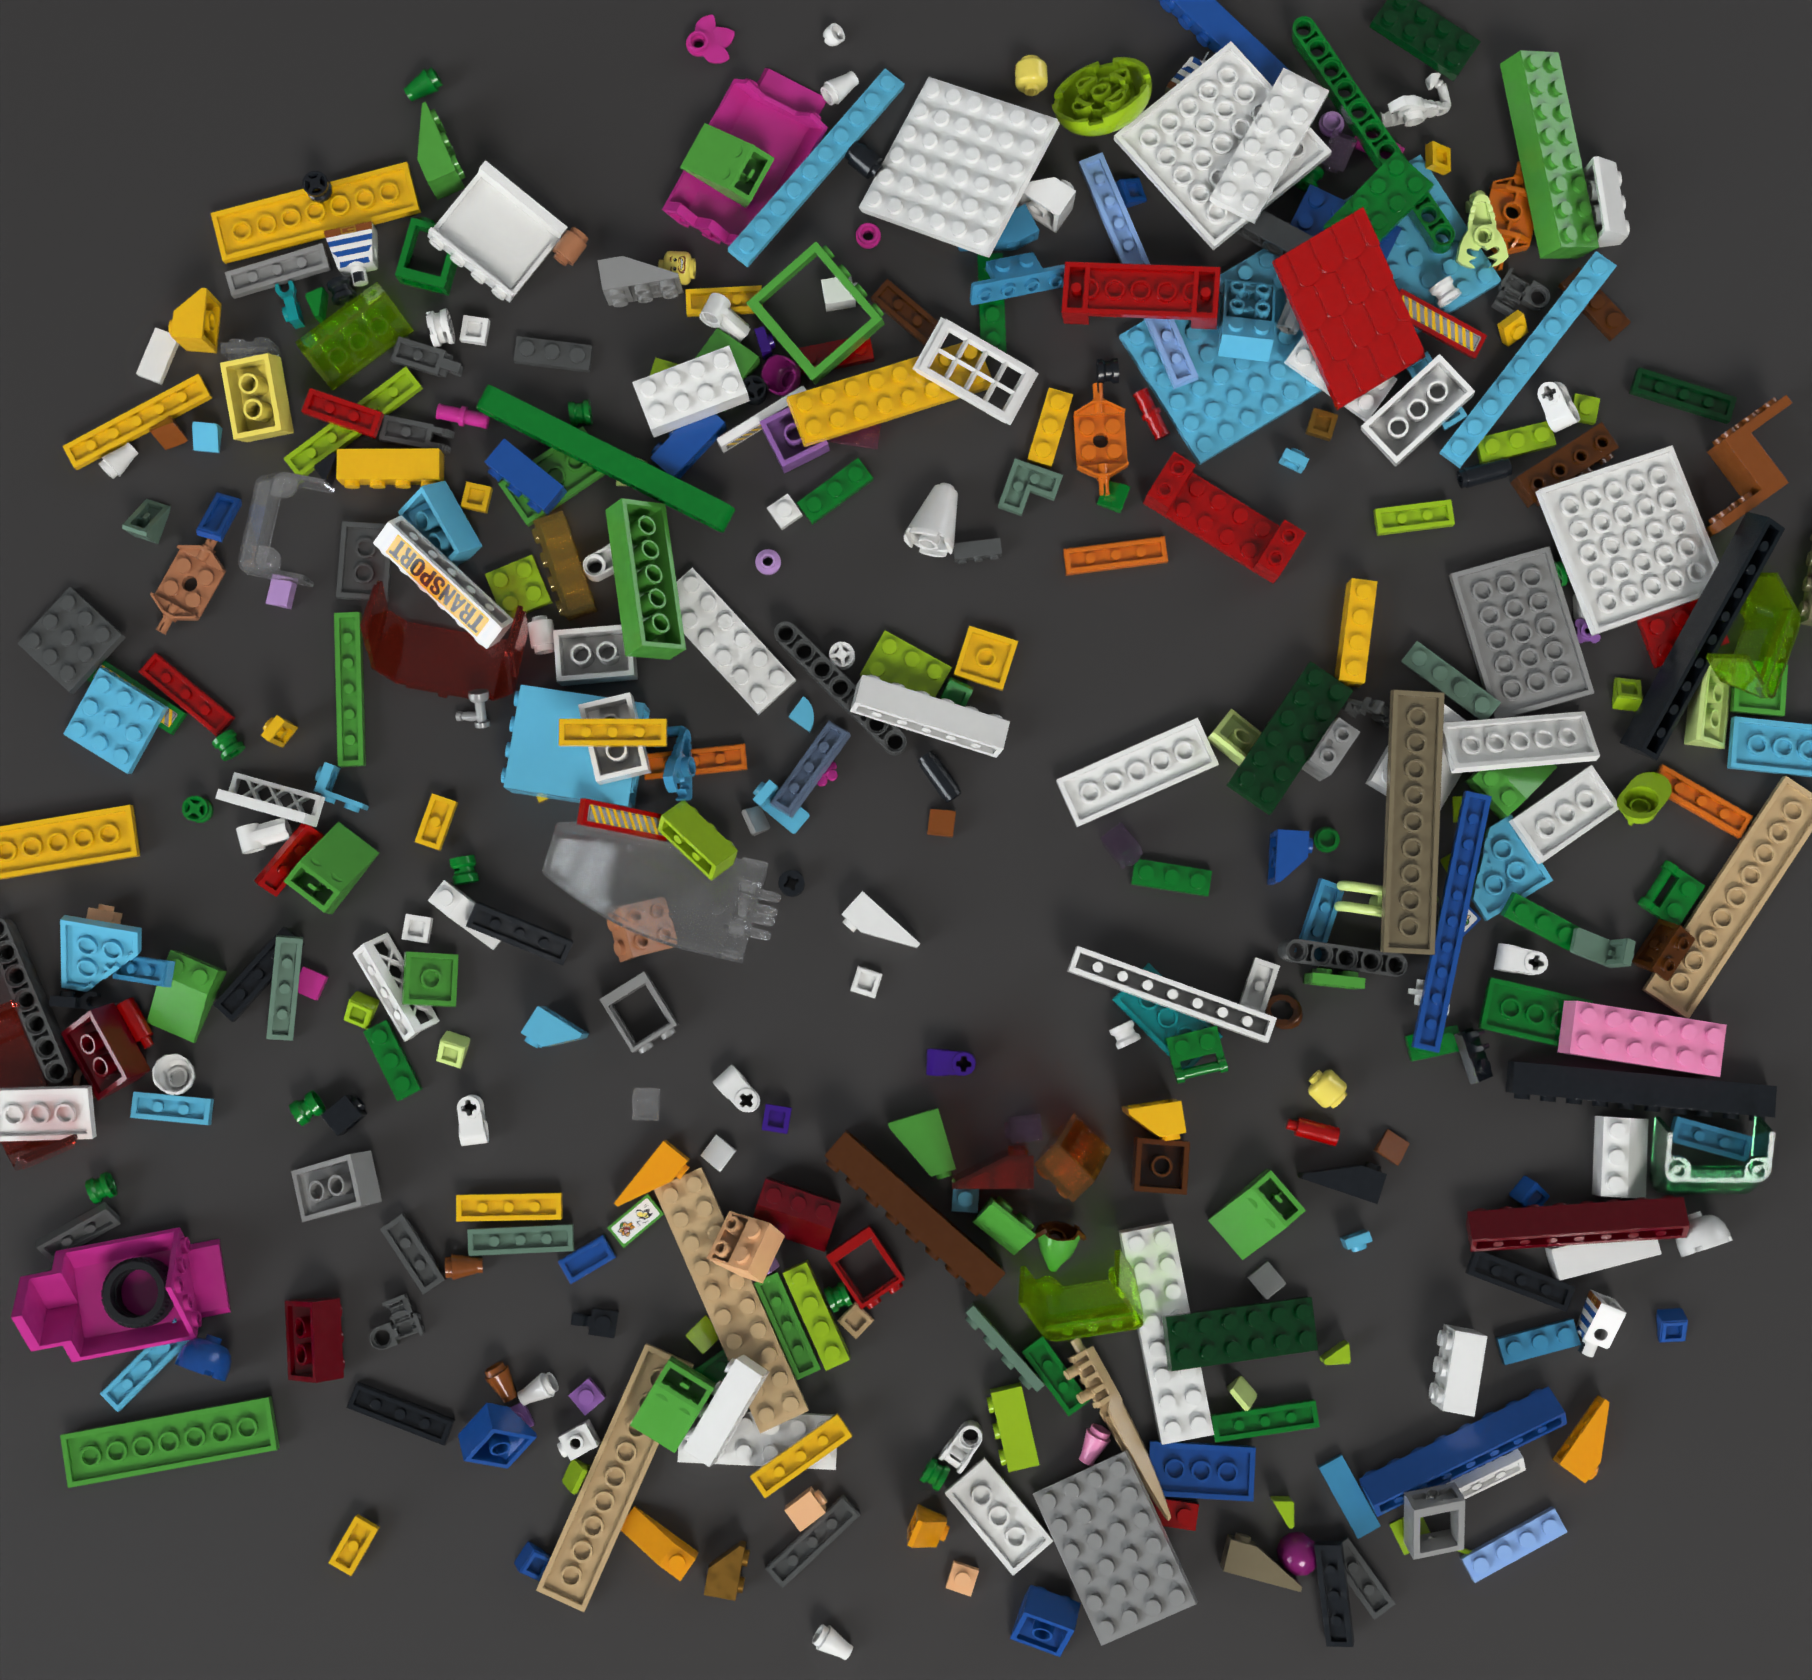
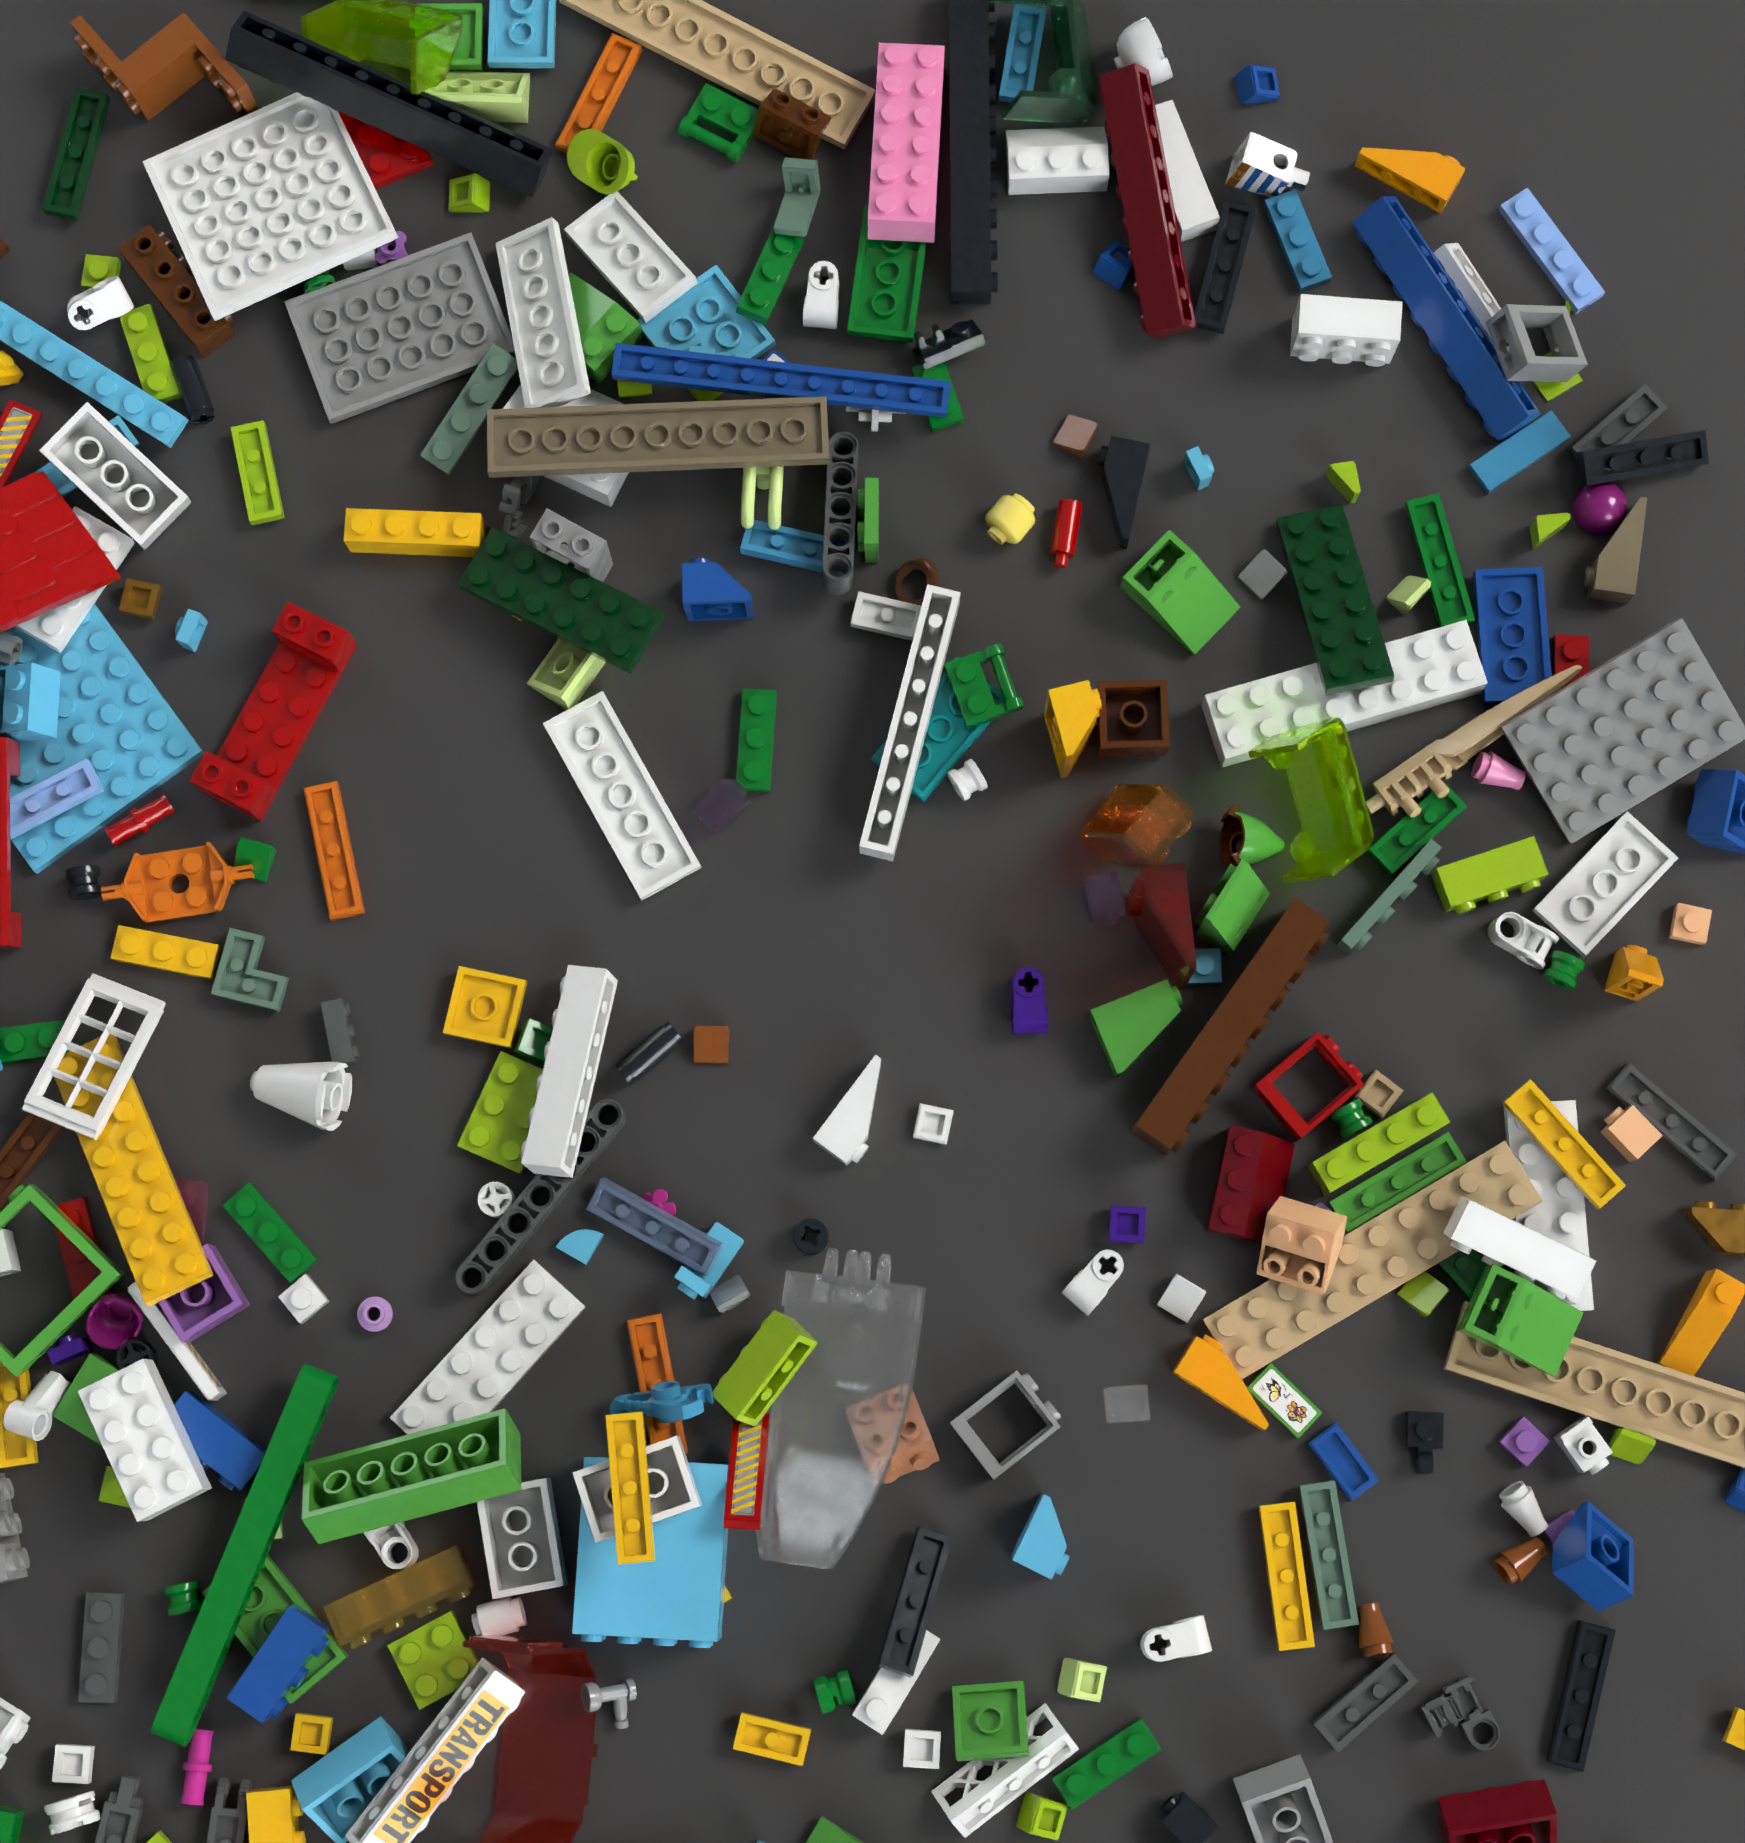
camera: 95 degrees left, 5 degrees down
(1326, 839) = (688, 546): green plate -> none

